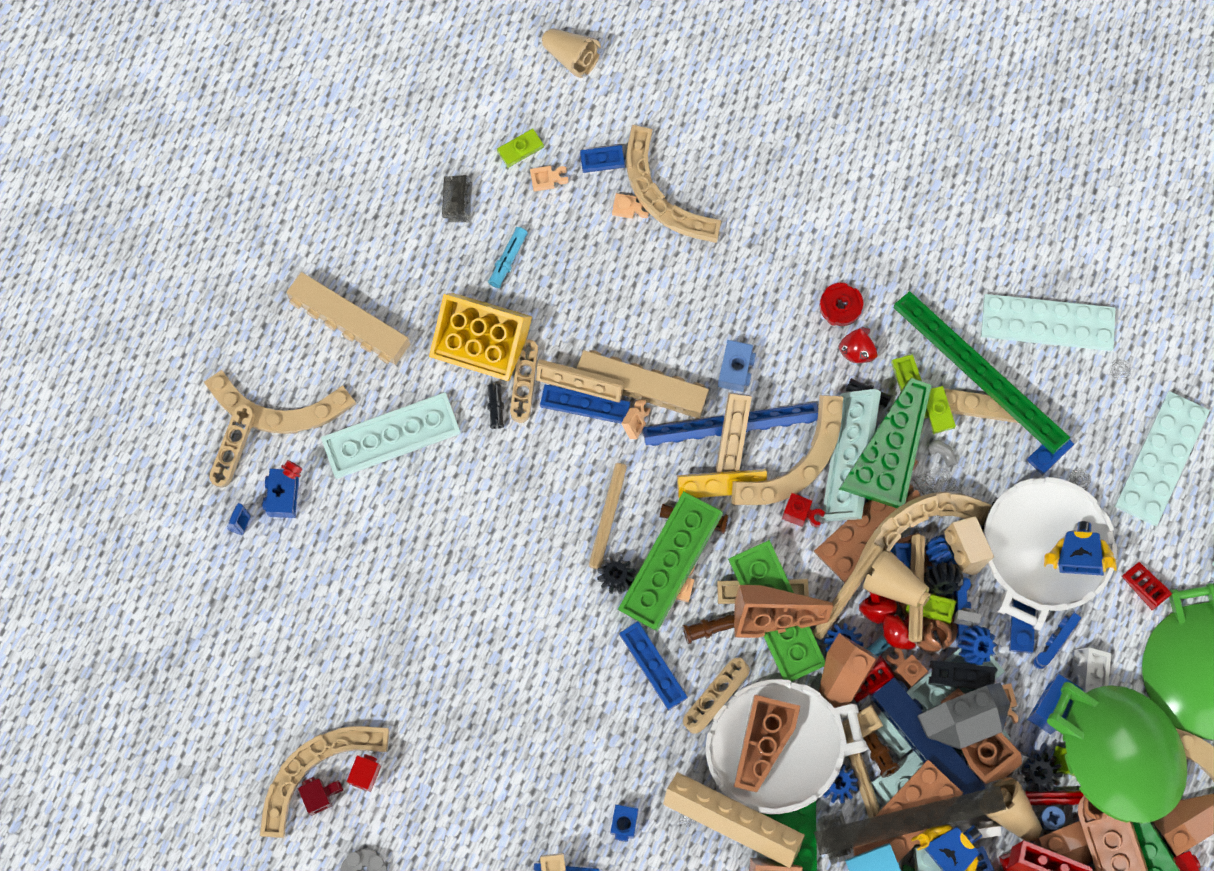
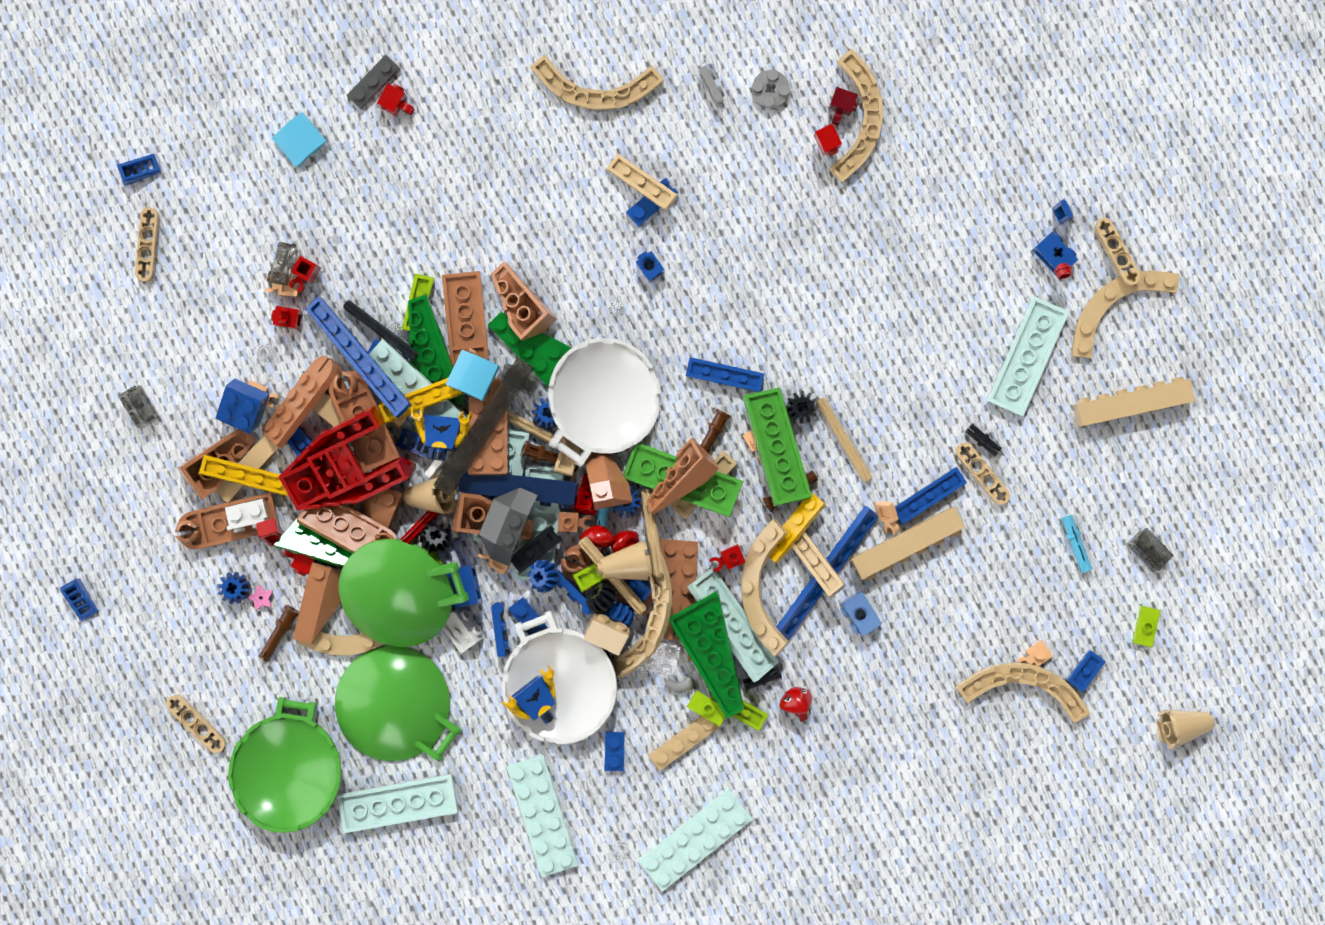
camera: 135 degrees right, 15 degrees up
(479, 336) = (1040, 473): yellow slope -> none
(544, 178) = (1108, 620): light nougat plate -> none
(579, 380) = (947, 505): tan tile -> none
(713, 693) = (666, 394): tan beam -> none
(733, 819) = (587, 327): tan brick -> none
(766, 734) = (616, 398): nougat wedge -> none
(846, 294) = (840, 731): red plate -> none
(967, 617) = (565, 587): light grey plate -> none
(982, 372) = (705, 760): green plate -> none
(1047, 820) = (408, 517): medium blue wheel -> none
(1140, 590) = (461, 719): red slope -> none

